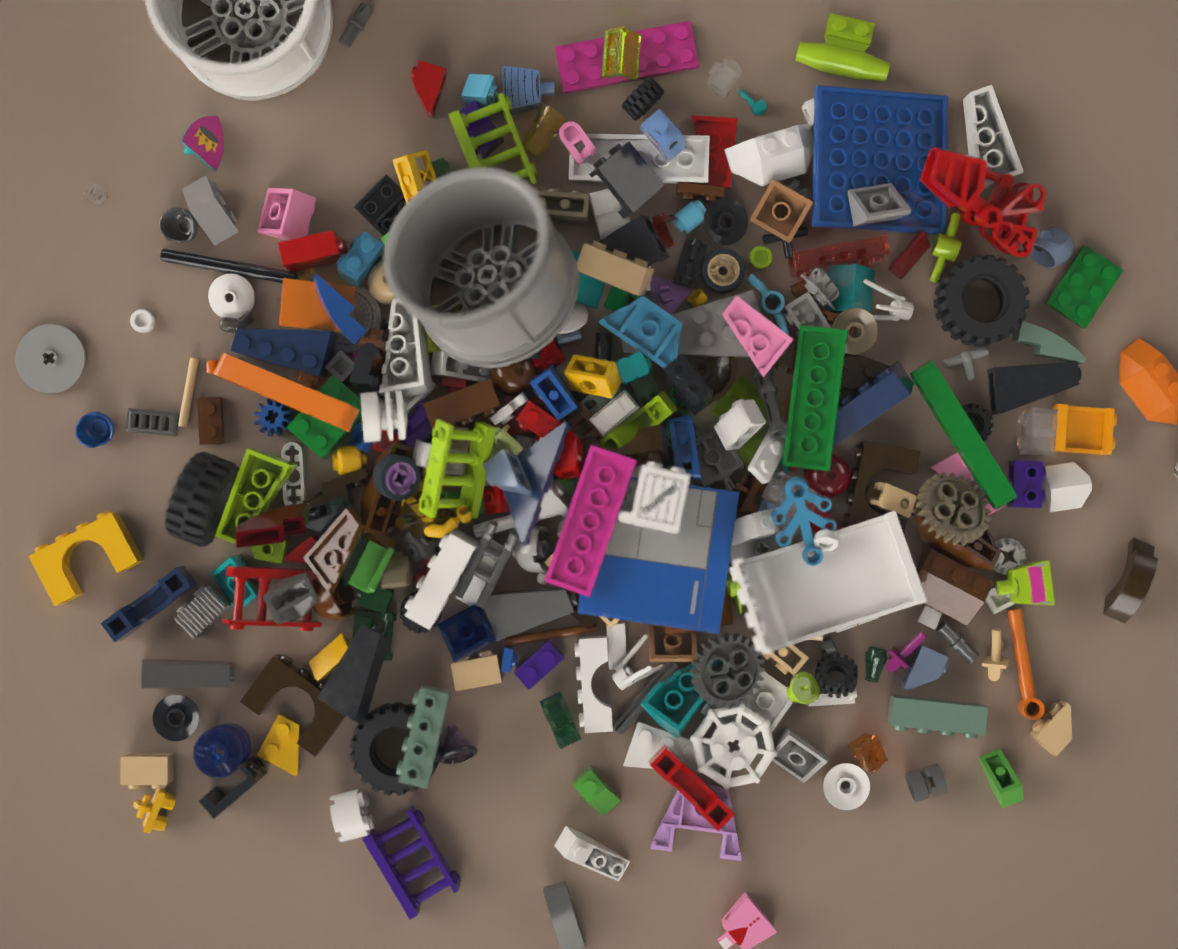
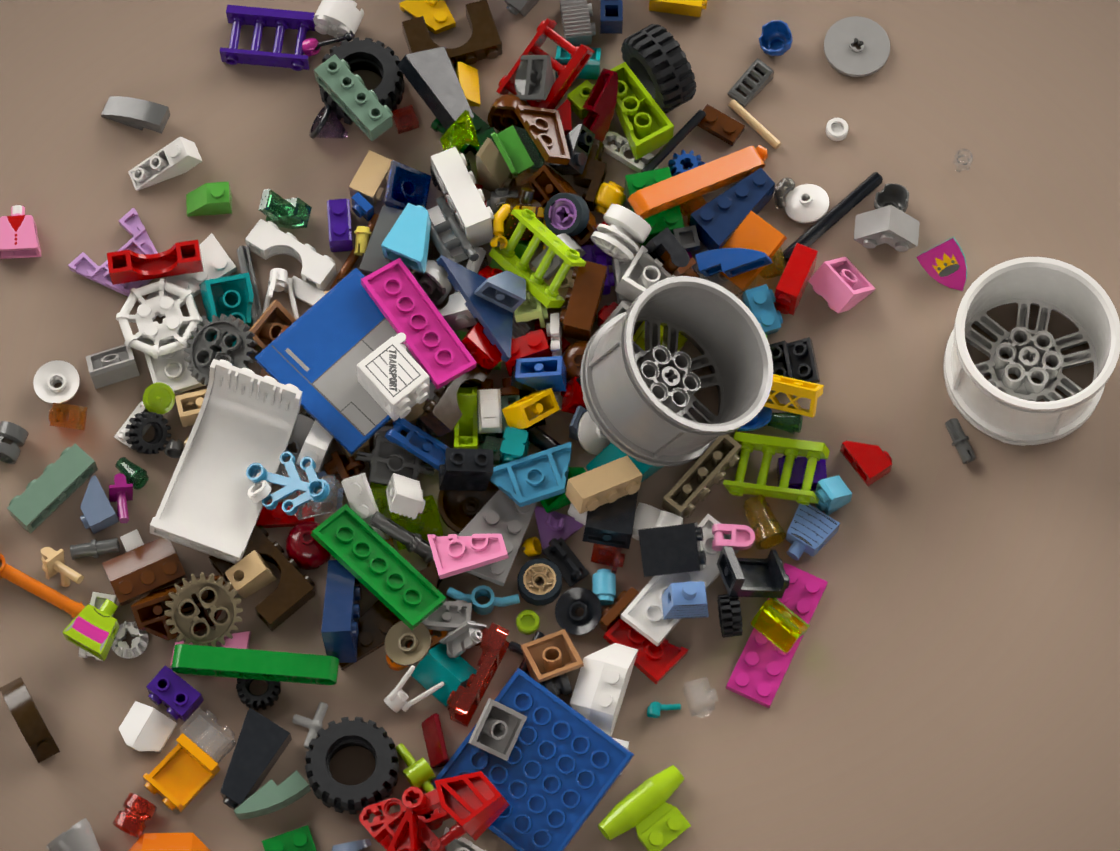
camera: 130 degrees right, 20 degrees down
(258, 443) = (671, 145): none -> black bar
(389, 623) = (459, 133): none -> clear neon green slope
(392, 817) = (312, 46): none -> hinge
(401, 686) = (405, 119): none -> clear red plate
(517, 588) = (409, 238): none -> medium azure slope
(540, 634) = (362, 239): none -> light yellow pin
(597, 101) = (752, 575): none -> black panel
(1146, 437) = (135, 813): none -> clear red wheel

